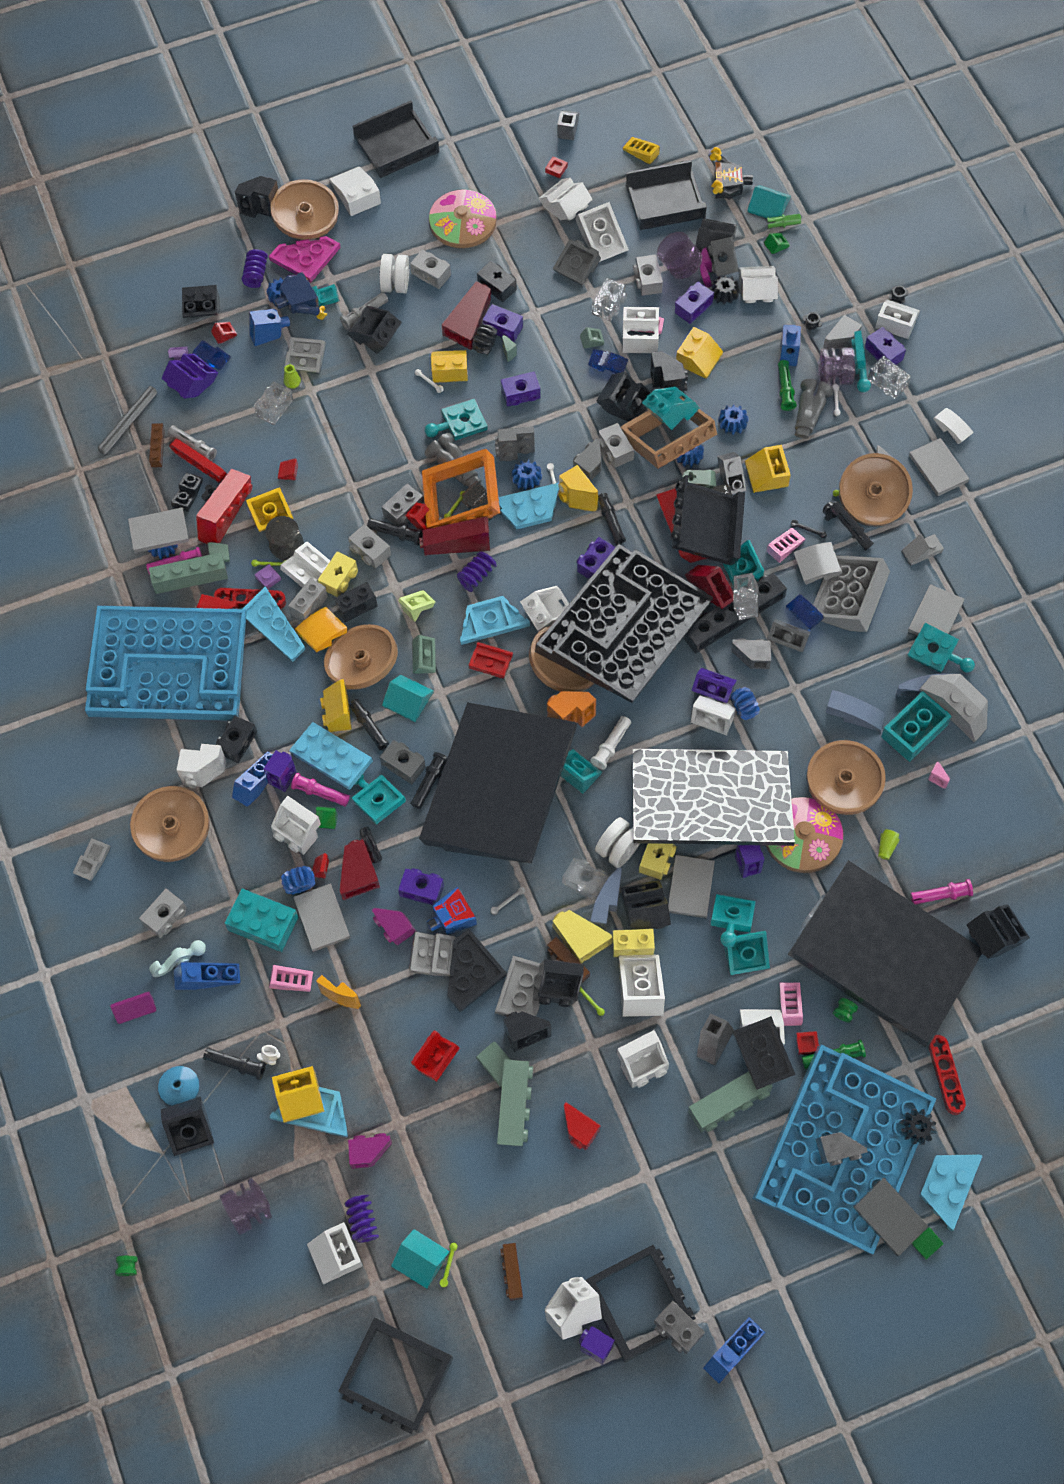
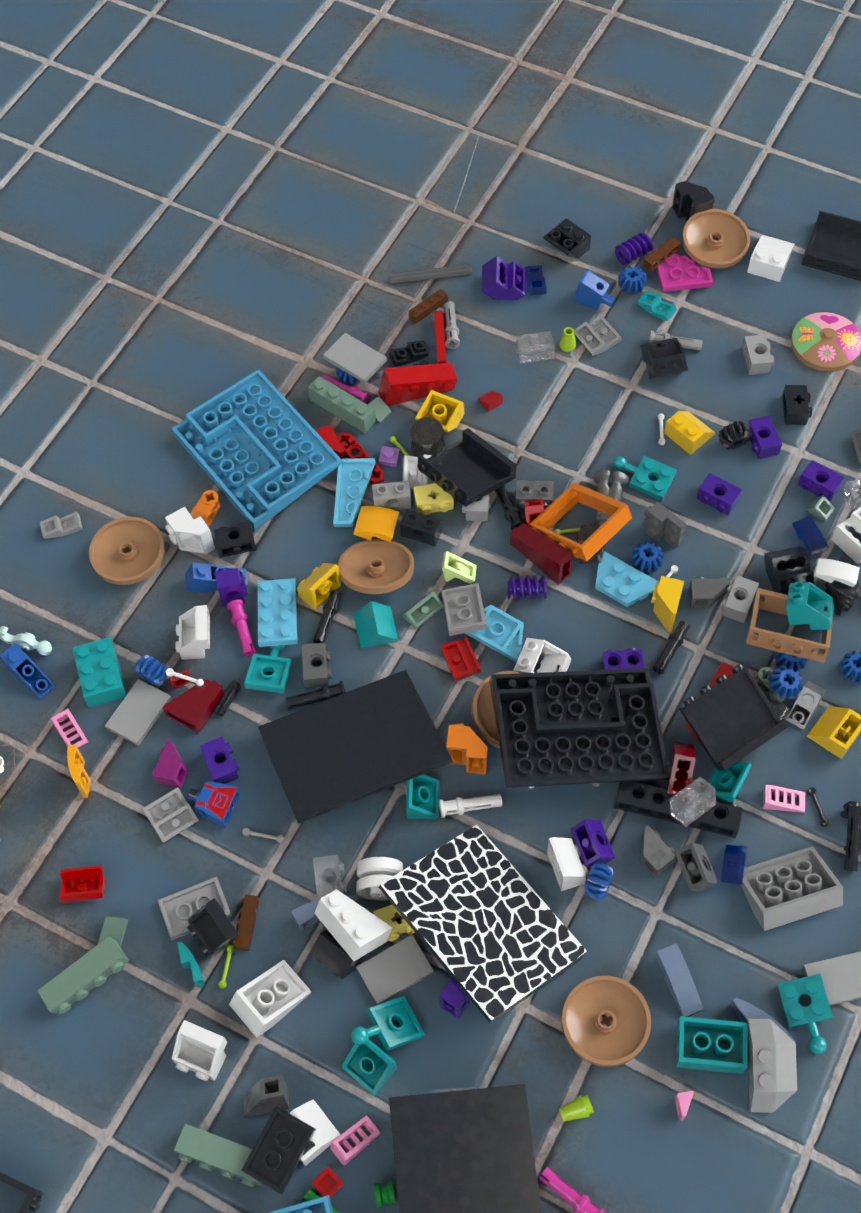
camera: 50 degrees right, 5 degrees down
(164, 903) = (62, 598): light grey brick -> none
(177, 352) = (513, 256): medium lavender plate -> none
(186, 740) = (206, 507): none -> orange piece
(223, 331) = (563, 272): red slope -> none
(281, 252) = (660, 255): none -> reddish brown piece
(299, 296) = (637, 290): dark blue torso -> none
(315, 867) = (169, 672): none -> white hinge
(327, 817) = (223, 650): green slope -> none
(340, 529) = (468, 468): none -> black panel
(394, 273) = (723, 333): white wheel -> none
(454, 626) = (464, 609): none -> light grey tile
(467, 316) = (745, 407): slope -> none
(471, 971) = (177, 855): black plate -> none
(509, 348) = (745, 459): sand green slope -> none
(525, 1029) = (150, 933): black slope -> none
(562, 1020) = (189, 961): none -> teal slope
(565, 315) = (817, 473): none -> dark purple brick
(580, 935) = (273, 914): light yellow slope -> none
(580, 1127) = (103, 1046): red slope -> none
(633, 942) = (301, 961): light yellow brick -> none
(641, 884) = (351, 924): none -> white wedge
(662, 366) = (835, 570): none -> white slope
(709, 469) = (786, 682): none -> blue gear
(816, 837) = (526, 1035): dish -> none
(818, 562) = (791, 838): light grey slope -> none

